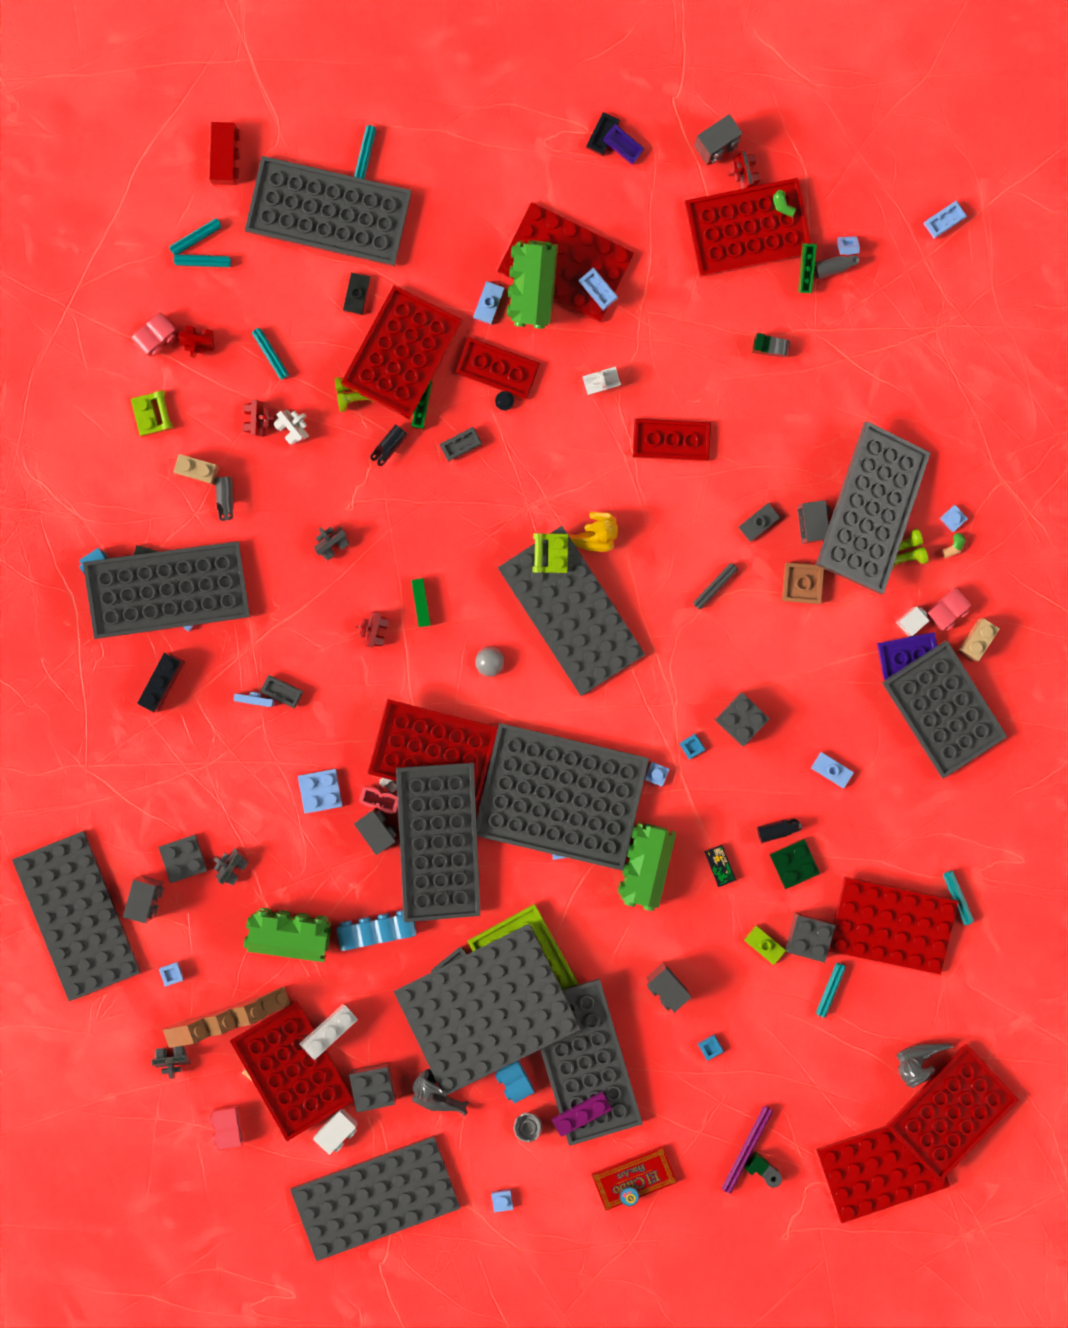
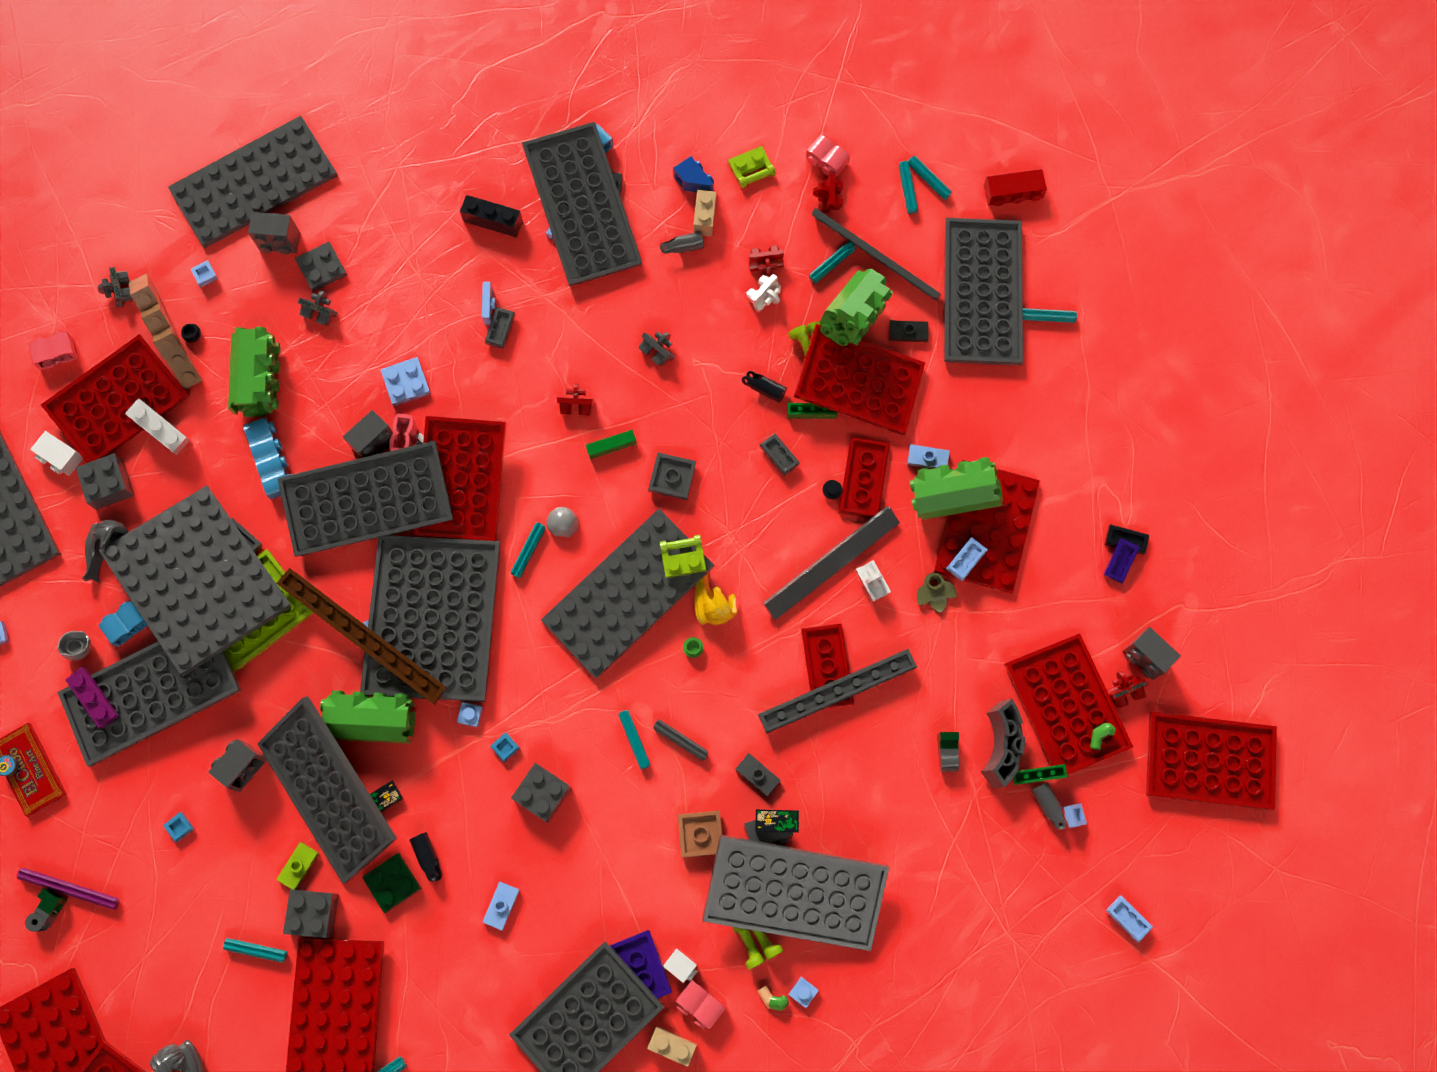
camera: 75 degrees right, 15 degrees down
(153, 475) = (692, 177): none -> blue slope
(232, 992) = (190, 333): none -> black plate
(271, 308) = (876, 254): none -> dark grey tile
(332, 339) = (855, 308): none -> bright green brick
(463, 550) = (672, 476): none -> dark grey plate
(511, 698) = (527, 550): none -> teal axle
(569, 862) = (362, 636): none -> reddish brown plate
(575, 415) = (831, 563): none -> dark grey tile
(623, 325) = (935, 595): none -> olive plate
(632, 559) = (693, 647): none -> bright green plate
(698, 434) = (837, 691): none -> dark grey tile
(706, 910) = (326, 790): none -> dark grey plate
(707, 628) = (634, 739): none -> teal axle
(774, 290) = (1008, 744): none -> dark grey brick
(811, 512) = (777, 821): none -> tile
(822, 109) = (1211, 761): none -> red plate

